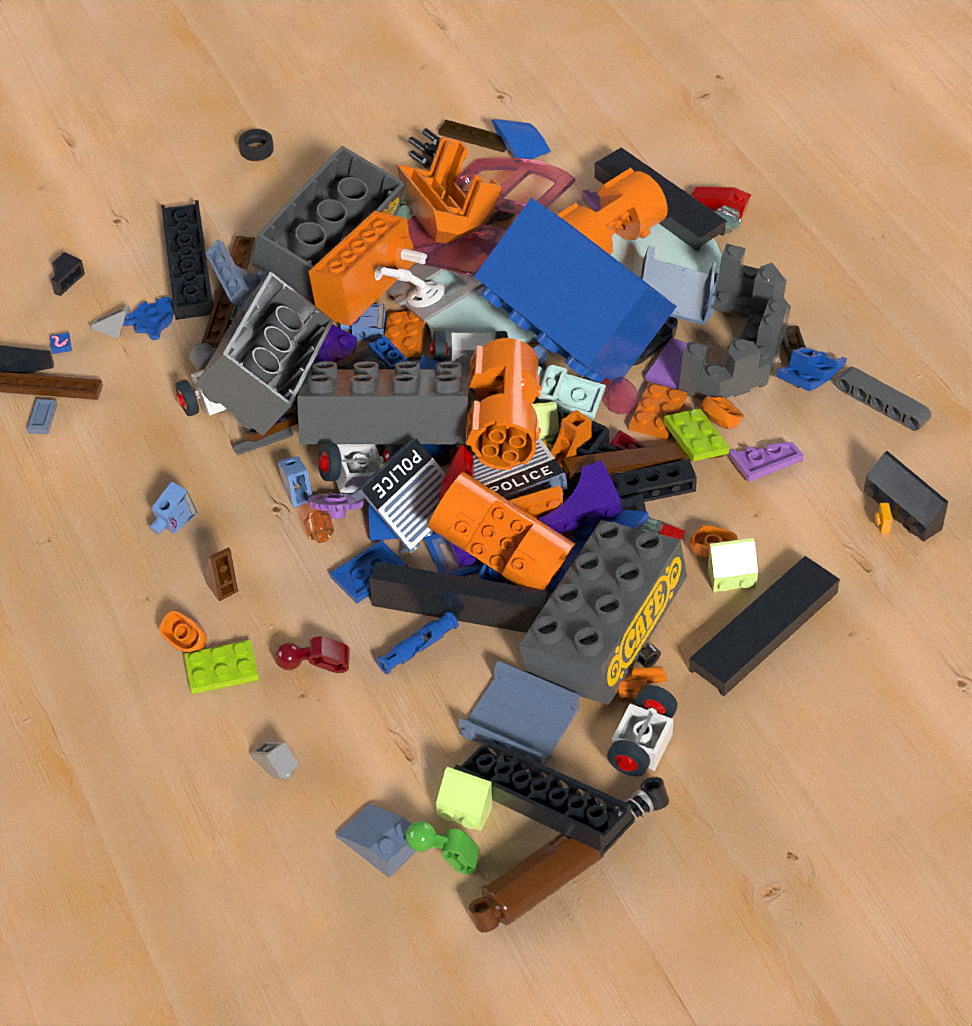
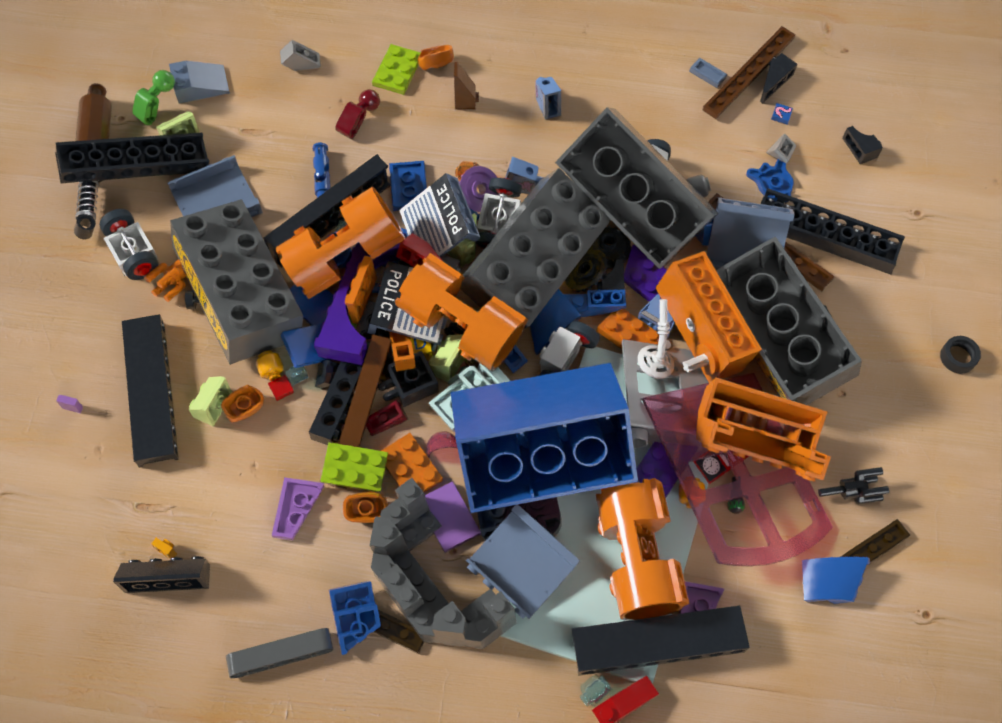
camera: 120 degrees right, 15 degrees up
(836, 675) = (69, 403): none -> medium lavender tile

